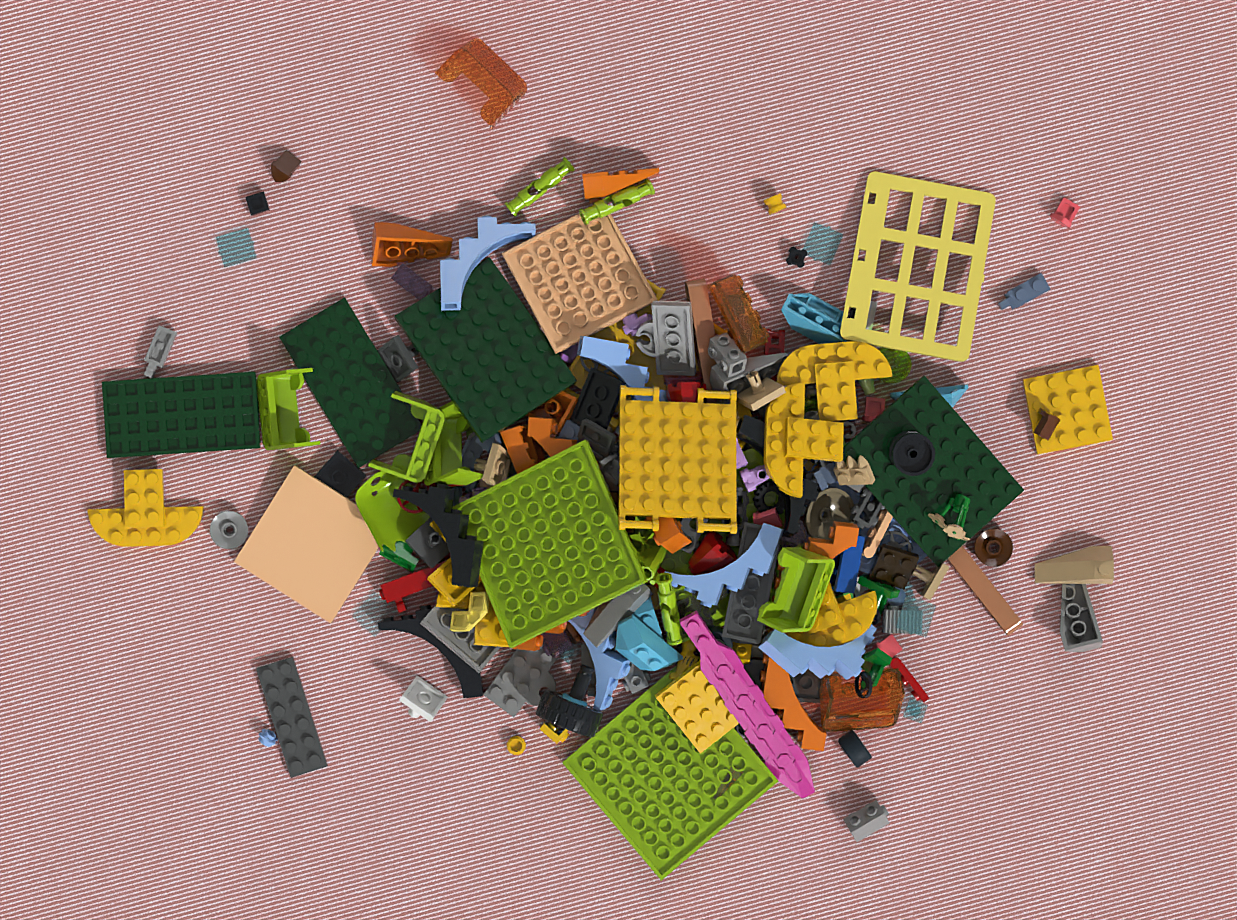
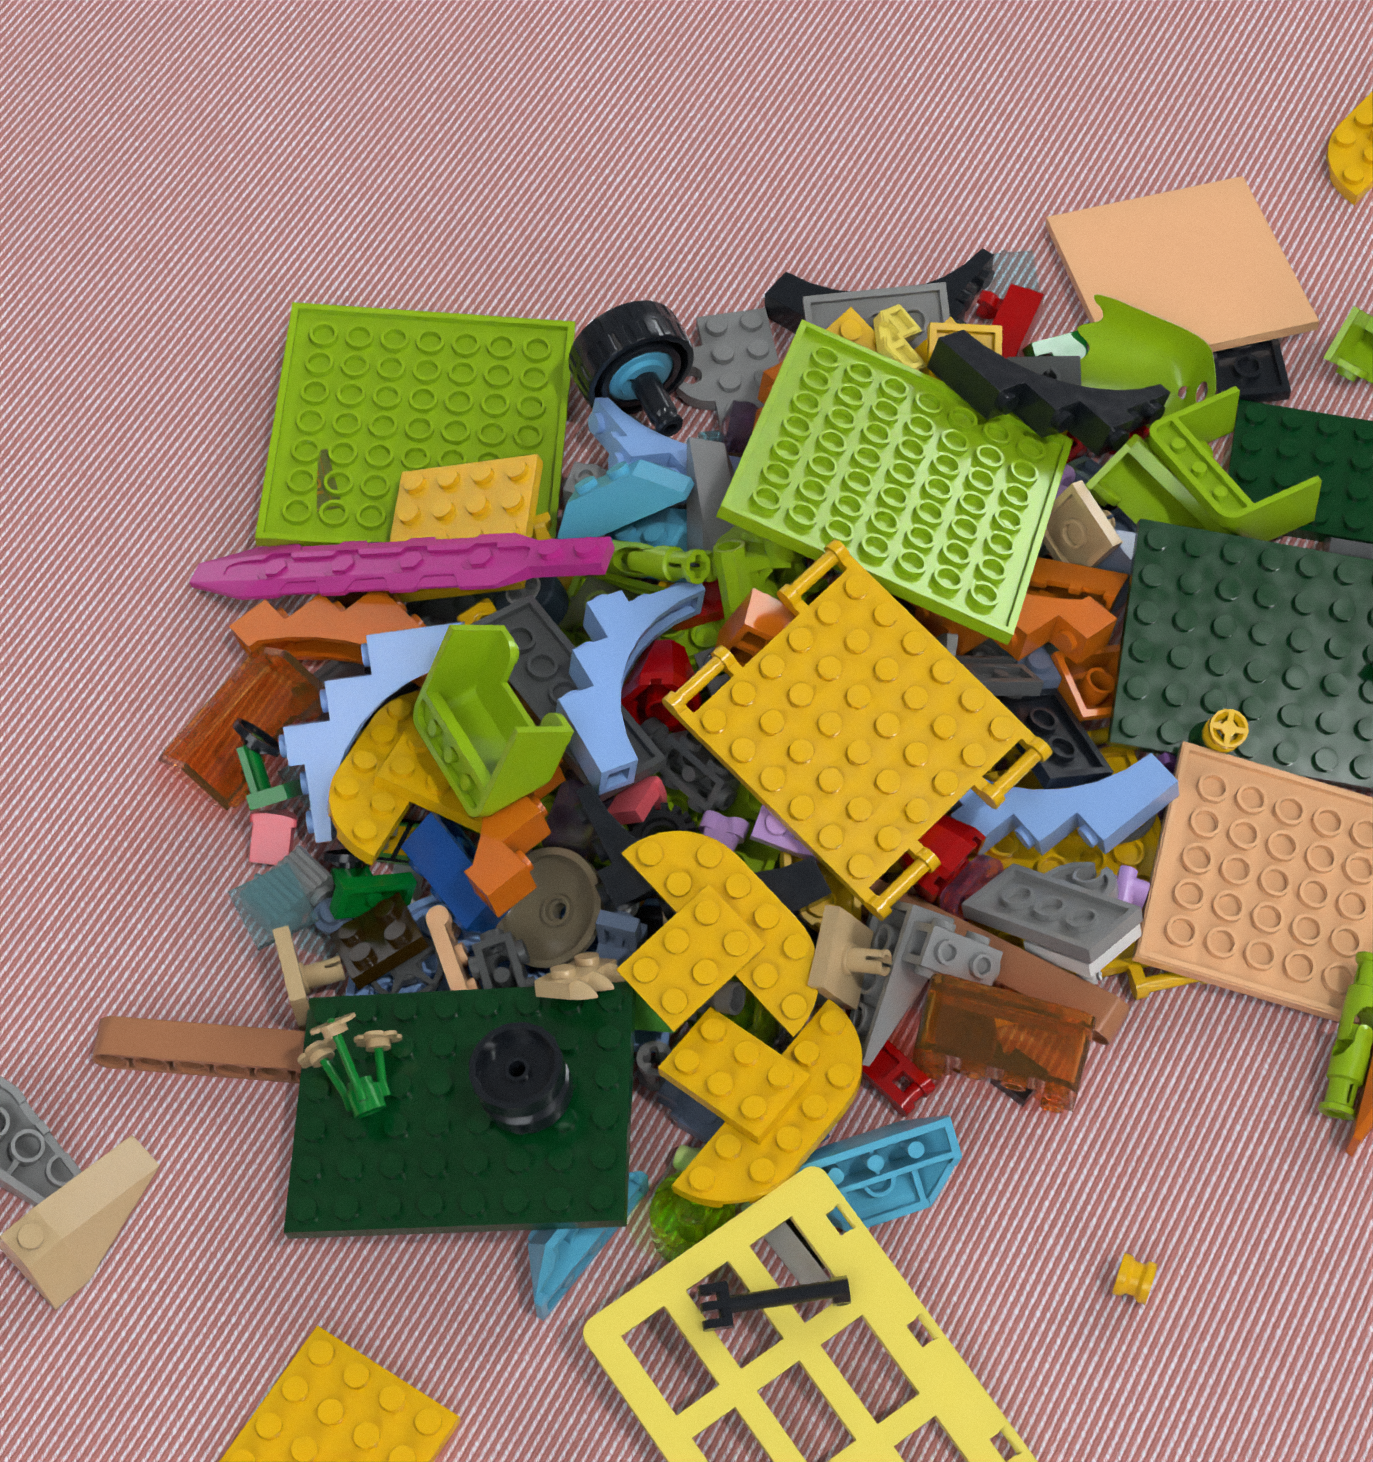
camera: 135 degrees right, 30 degrees down
(219, 532) = (1294, 198): light grey dish -> none
(267, 737) = (962, 42): light blue plate -> none
(292, 717) = (963, 96): dark grey plate -> none
(423, 699) = (834, 230): white tile -> none
(516, 745) = (656, 290): yellow plate -> none
(538, 336) = (1232, 727): none -> yellow wheel
(800, 261) = (1011, 1226): black plate -> none
(822, 243) = (996, 1301): clear light blue piece -> none
(854, 748) = (186, 668): black wheel -> none
(867, 820) = (75, 605): light grey brick -> none
(873, 408) = (649, 1140): coral tile -> none
(907, 678) = (197, 829): red plate -> none
(915, 710) = (145, 800): clear light blue plate -> none
(916, 321) = (727, 1304): none -> black hinge
(1003, 550) = (247, 1103): reddish brown dish -> none
(1046, 425) = (347, 1373): reddish brown tile -> none

